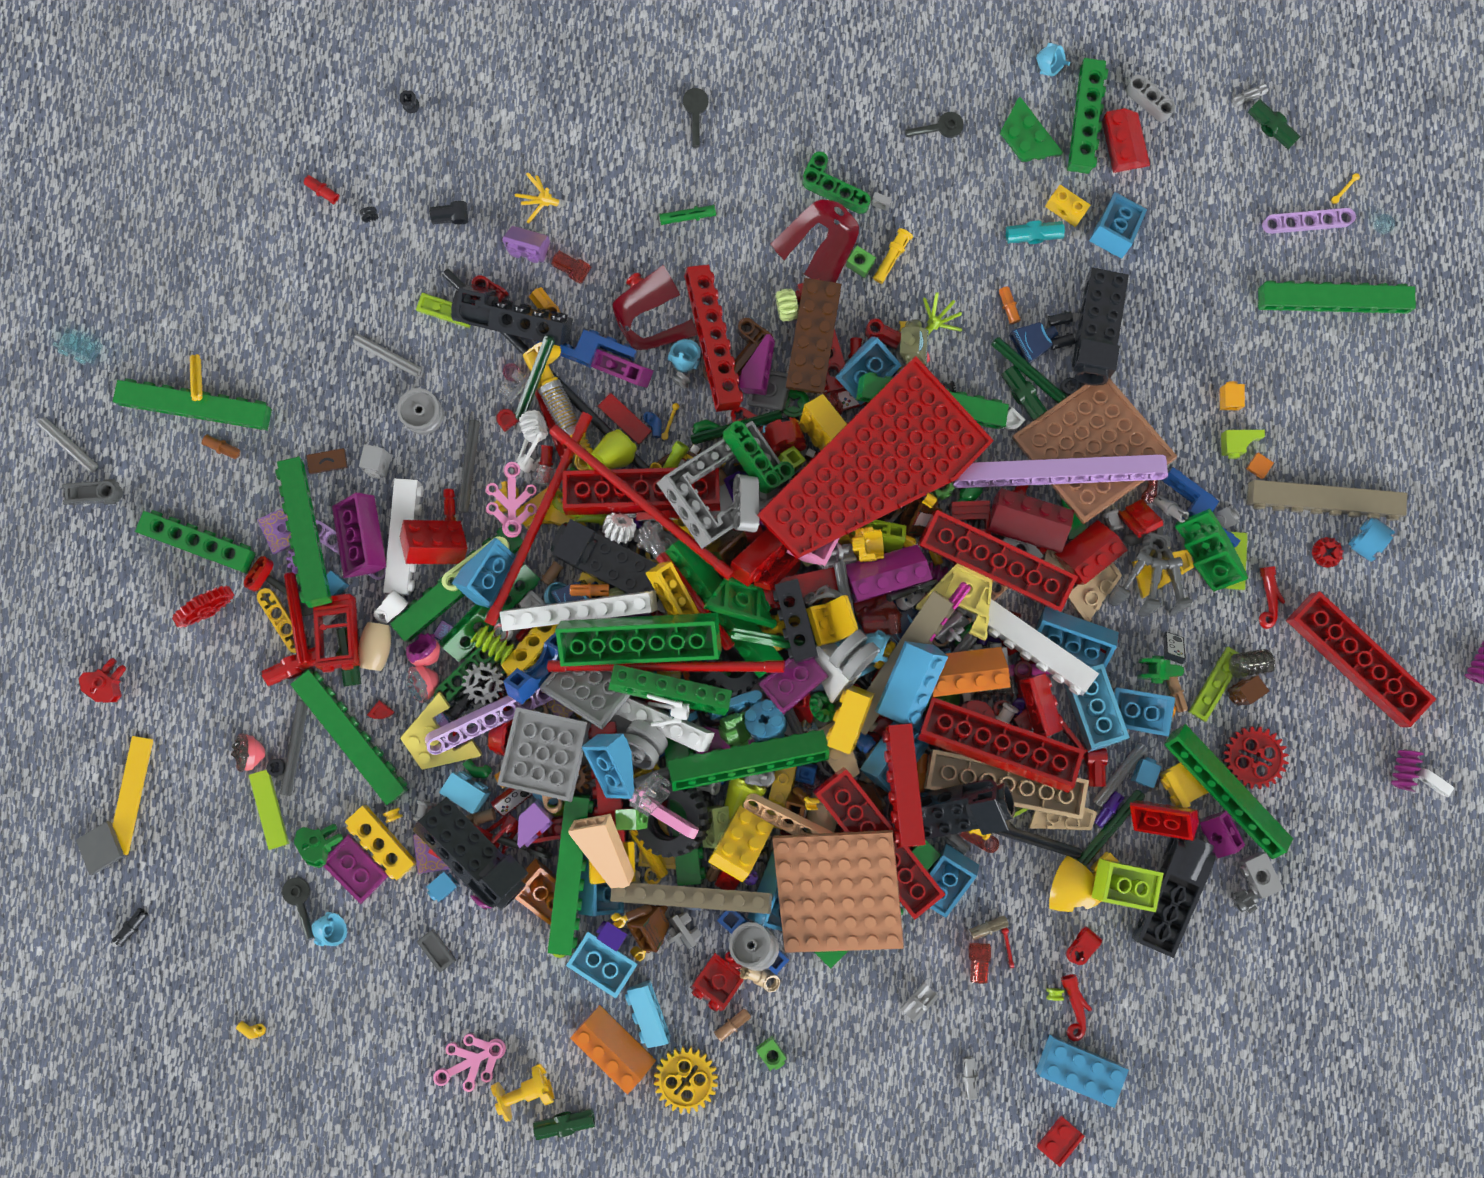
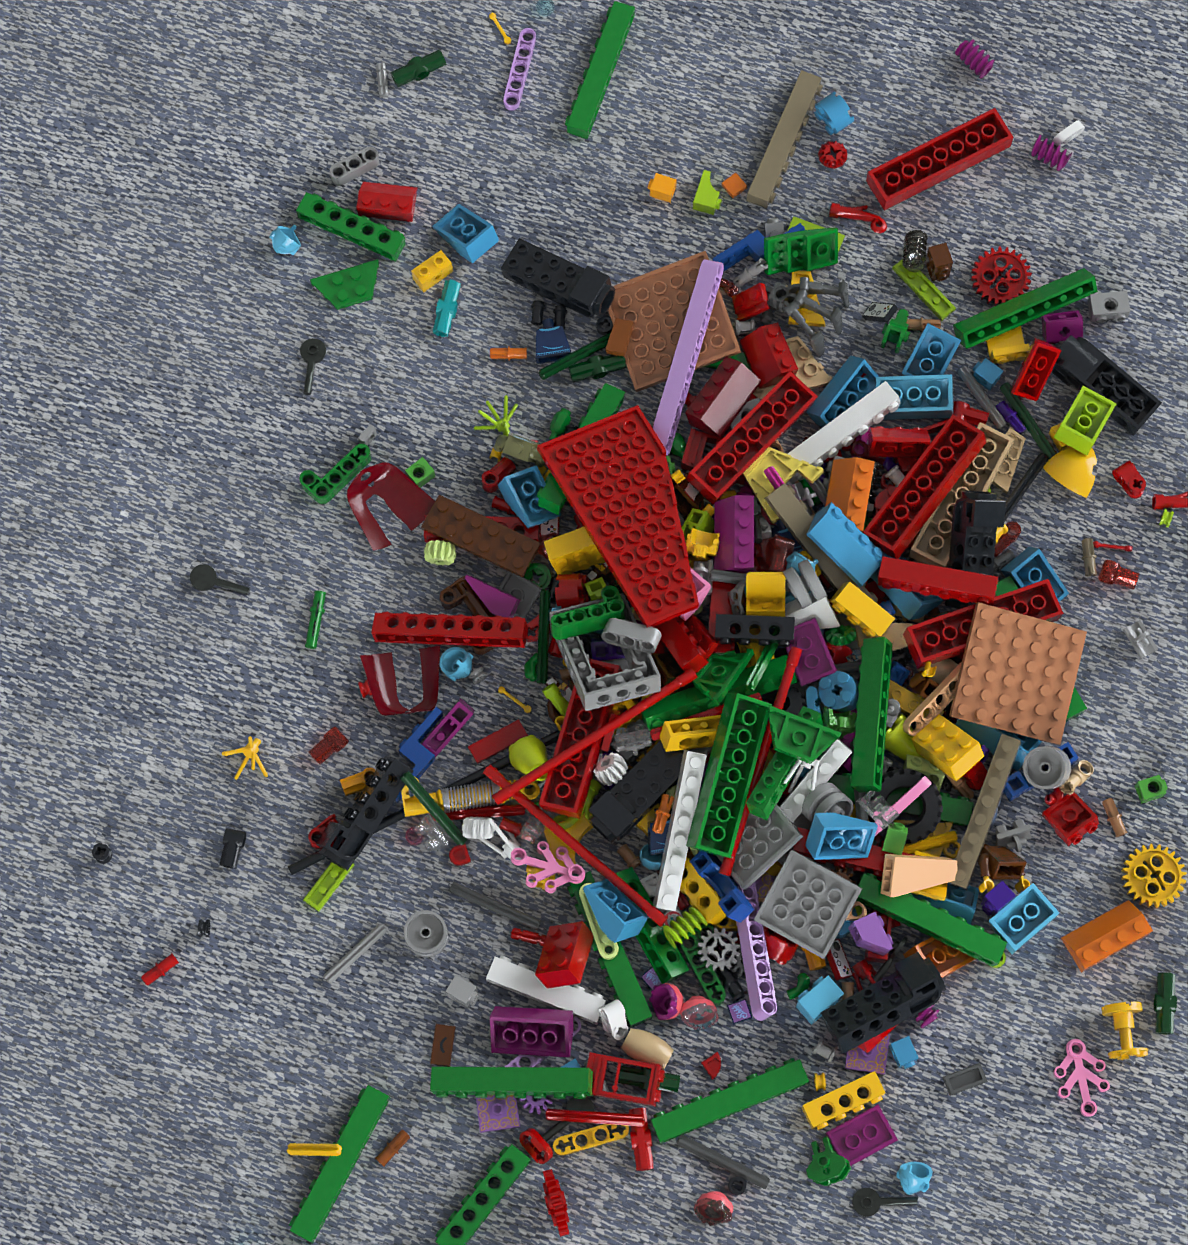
camera: 70 degrees left, 10 degrees down
(268, 809) = (777, 1205): lime tile -> none
(415, 738) = (747, 1028): light yellow wing -> none
(526, 244) = (291, 780): medium lavender slope -> none
(648, 1014) = (1083, 890): medium azure slope -> none
(655, 422) = (511, 714): blue arm -> none
(694, 695) = (799, 736): none -> green wing
(896, 249) = (418, 437): yellow pin -> none
(956, 374) = (558, 423): none -> green plant
(1014, 420) = (620, 382): white tile -> none
(1060, 403) = (619, 337): none -> dark orange tile
(1245, 901) = (1128, 326): dark grey gear -> none

